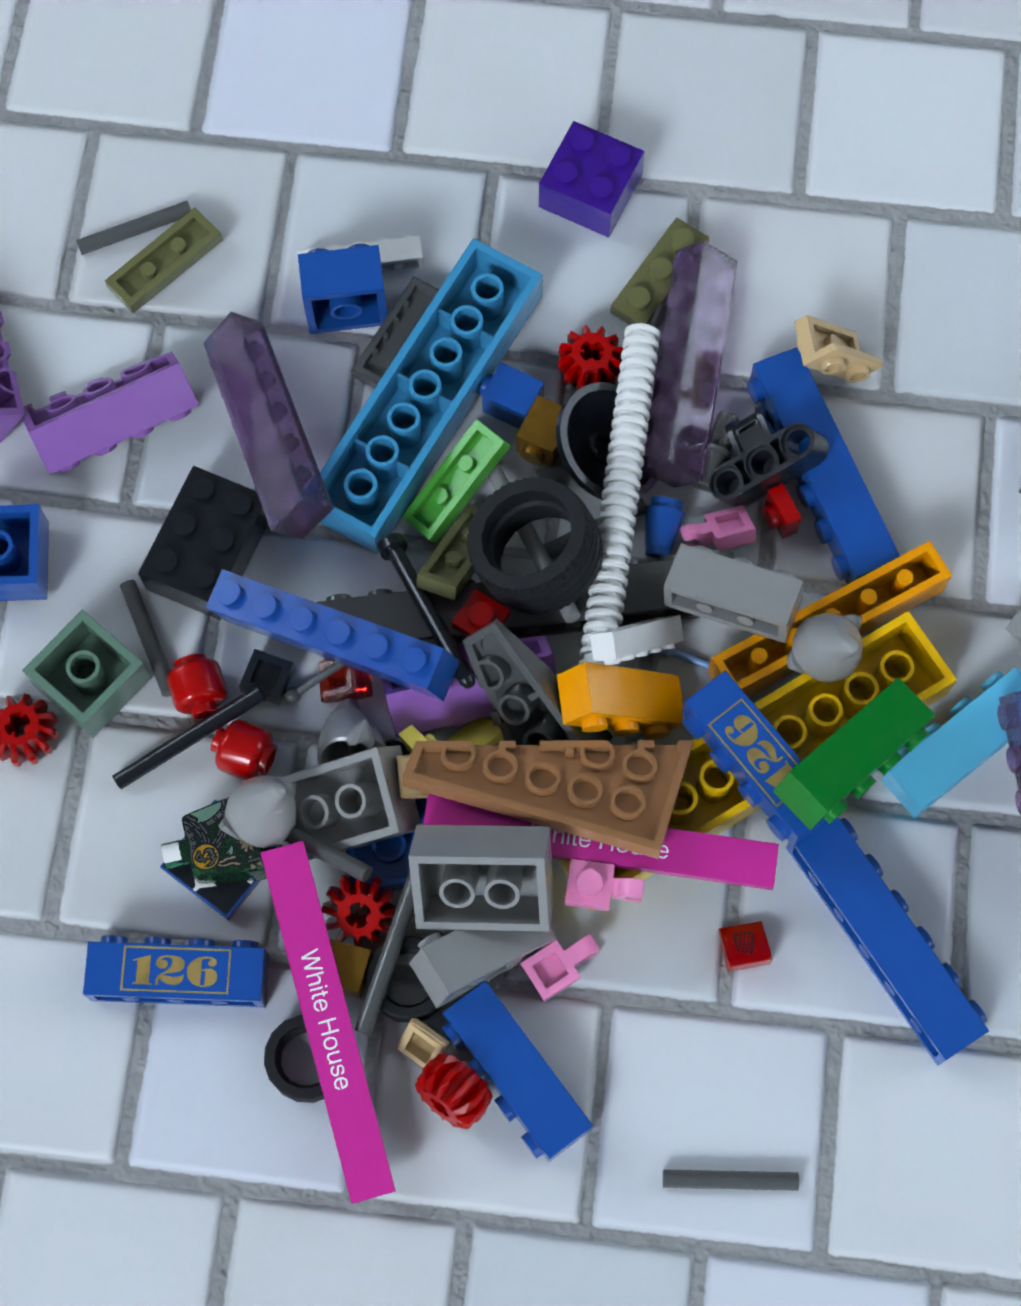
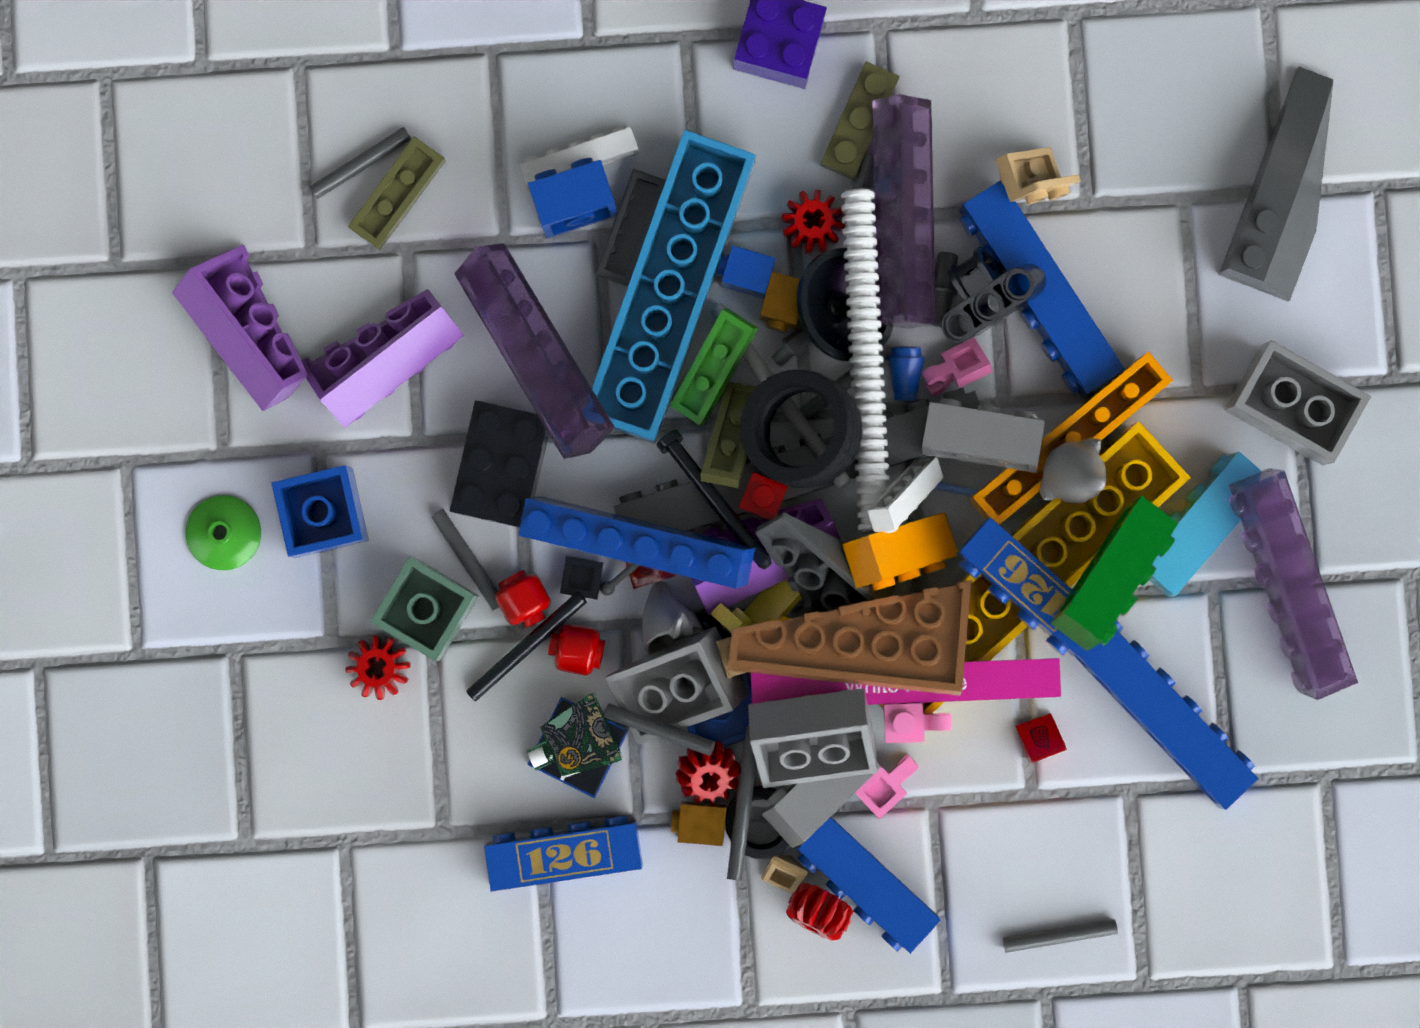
camera: 10 degrees left, 15 degrees up
(261, 811) = (608, 711): light grey hat -> none
(272, 1063) = (694, 933): black tyre -> none
(328, 1023) = (702, 875): dark pink tile -> none
(781, 511) = (1009, 339): red plate -> none

